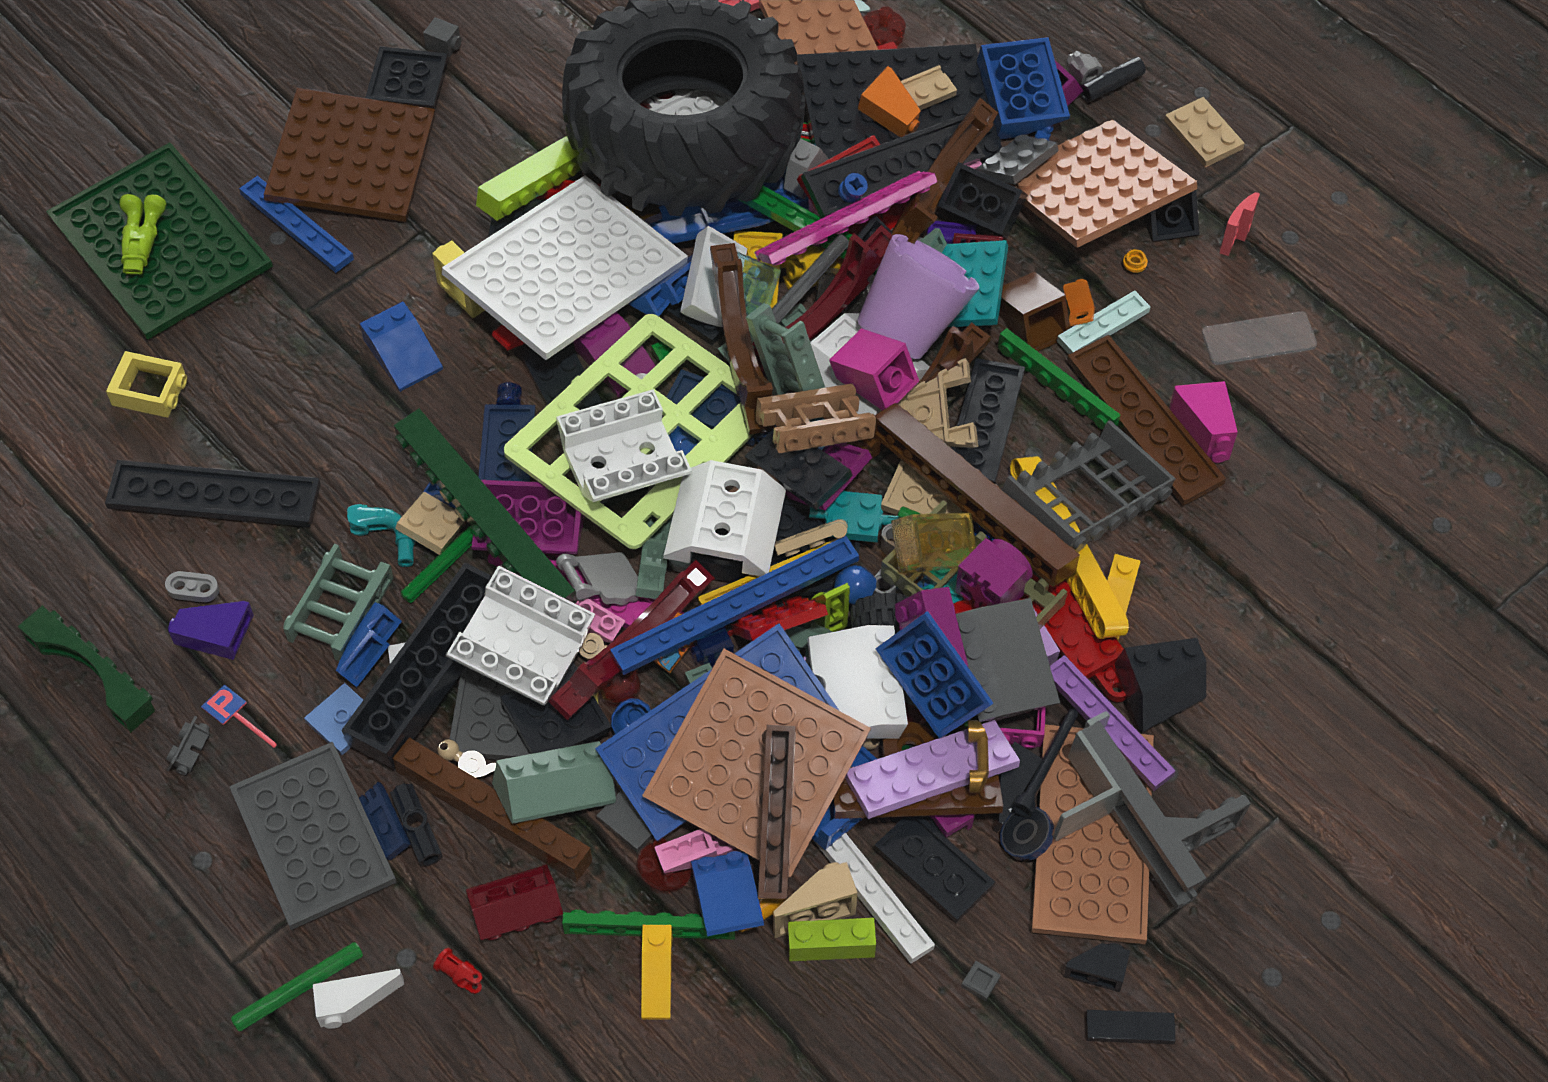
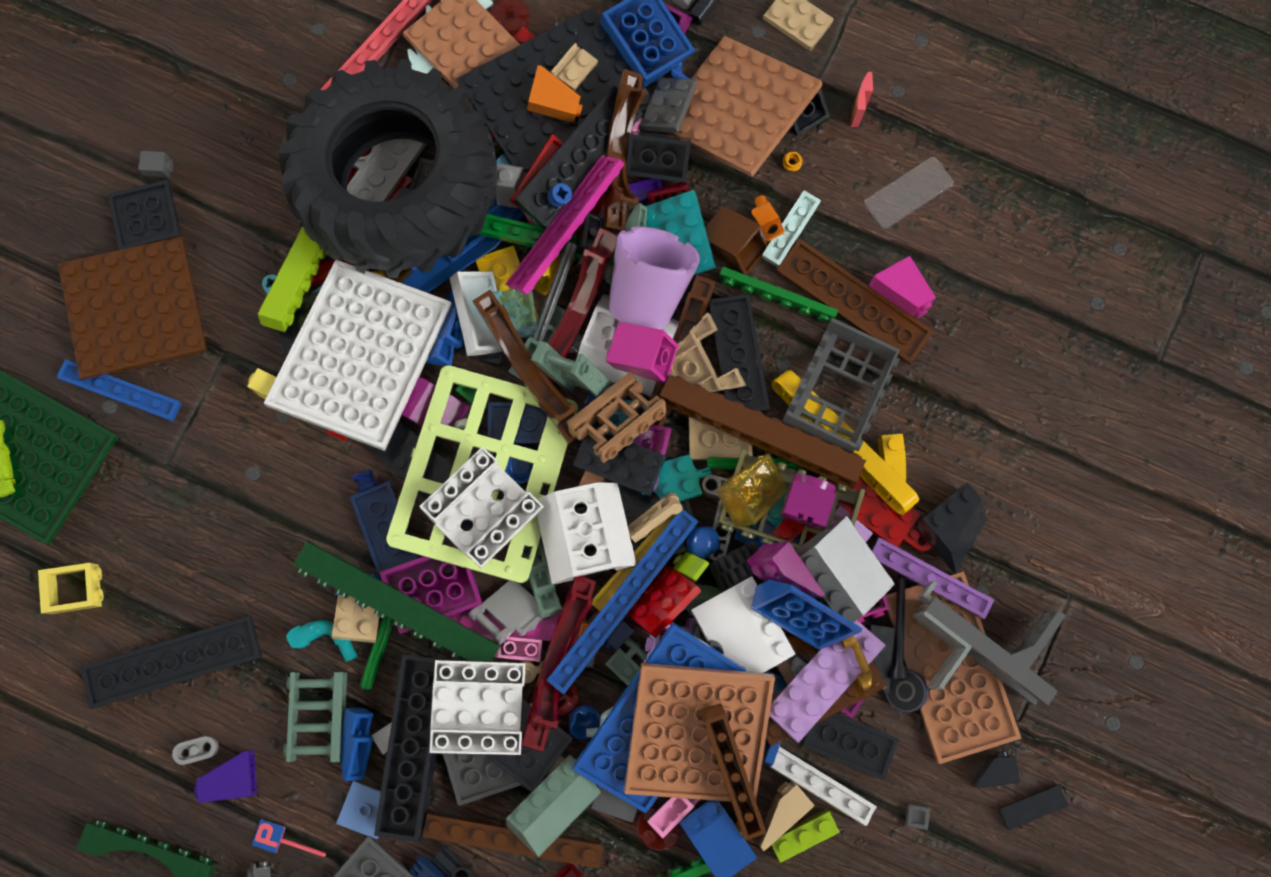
camera: 25 degrees left, 20 degrees up
(400, 346) = (258, 471): blue slope -> none
(470, 761) = (482, 809): piece -> none

